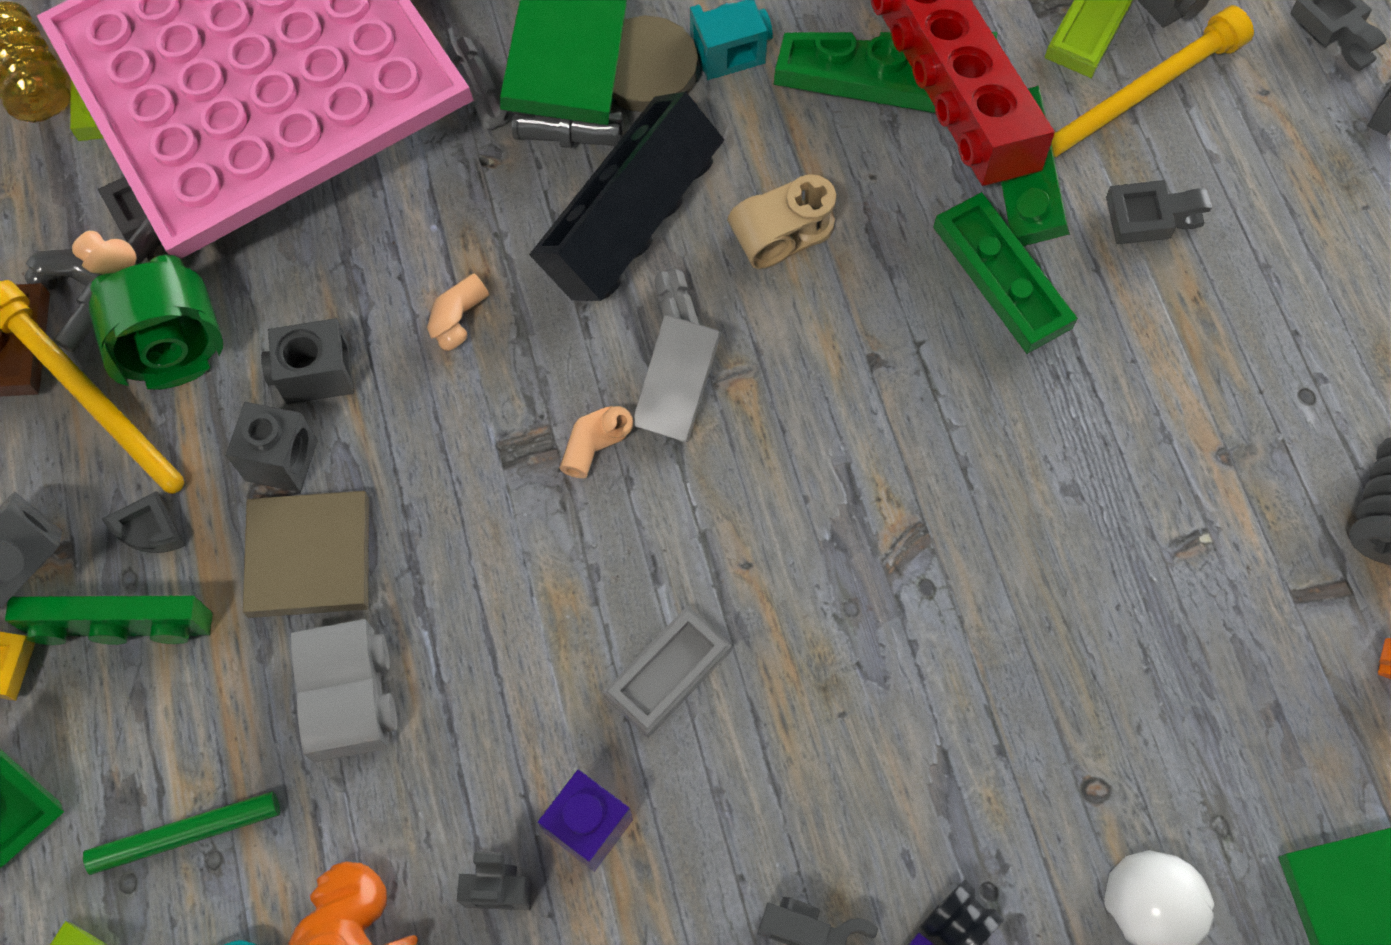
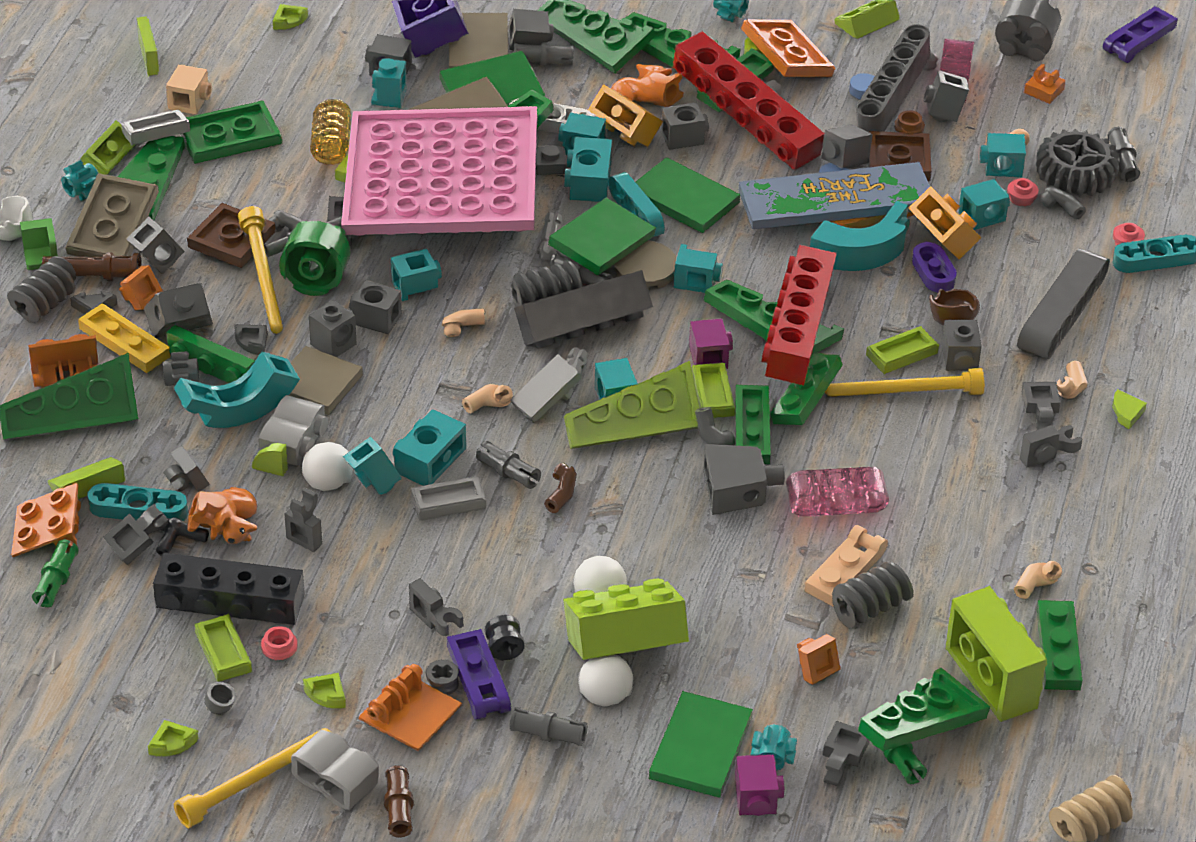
camera: 30 degrees right, 25 degrees down
(77, 678) = (180, 367): none -> dark grey gear
(102, 255) = (310, 211): light nougat arm -> none
(181, 833) = (195, 453): green bar -> none
(220, 885) = (184, 472): none -> dark grey tile
(226, 662) = (243, 399): none -> teal arch
(327, 263) = (415, 272): none -> teal brick
(349, 767) = (272, 459): none -> lime tile
(443, 728) = (325, 466): none -> white hair
(525, 701) = (372, 466): none -> teal brick
(539, 181) = (544, 282): none -> dark grey piece
(584, 633) = (429, 448): none -> teal brick
(586, 820) = (364, 522): dark purple brick -> none
(717, 555) = (508, 464): none -> dark grey pin
(770, 312) = (613, 377): none -> teal brick
(783, 223) = (654, 352): tan piece -> none
(831, 556) = (565, 490): none -> reddish brown arm
(845, 340) = (642, 410): none -> lime wing
(846, 157) = (710, 342): none -> magenta brick
(898, 237) = (714, 389): none -> lime tile
(956, 322) = (709, 432): none -> dark grey arm
(1010, 706) = (599, 574): none -> white hair
(1058, 385) = (738, 477): none -> dark grey torso
(1138, 788) = (625, 619): none -> lime brick
(1149, 213) = (855, 432): dark grey plate -> none
(1207, 330) = (837, 491): none -> clear pink beam
(1311, 457) = (846, 563): none -> light nougat plate

